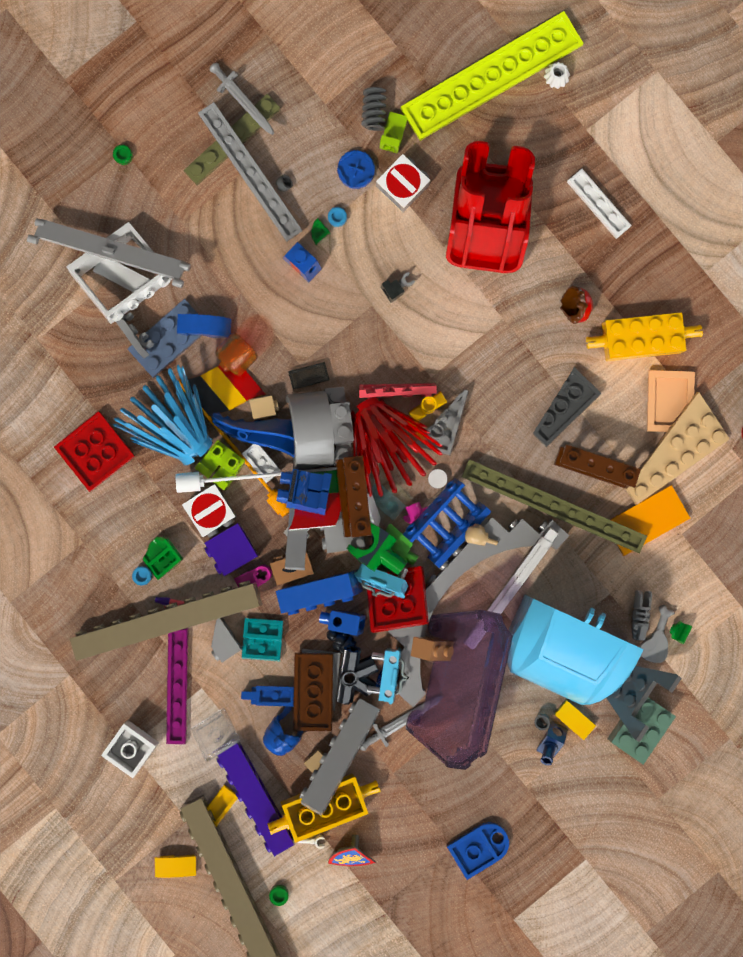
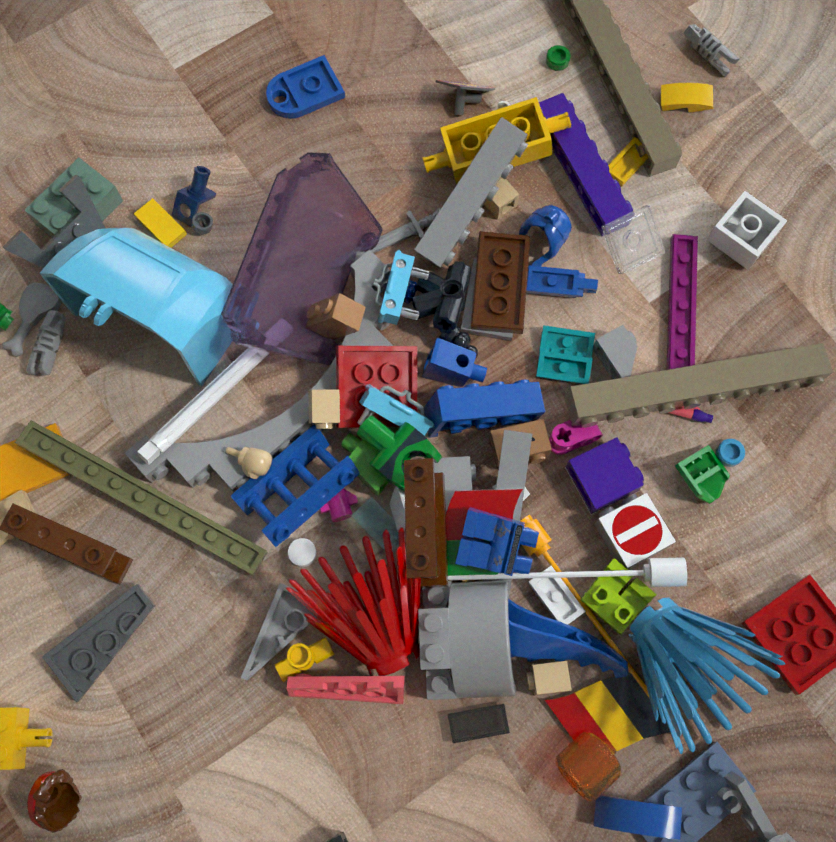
camera: 170 degrees left, 15 degrees down
(156, 912) = (710, 48): none -> light grey hinge
(432, 578) = (324, 408): none -> tan brick

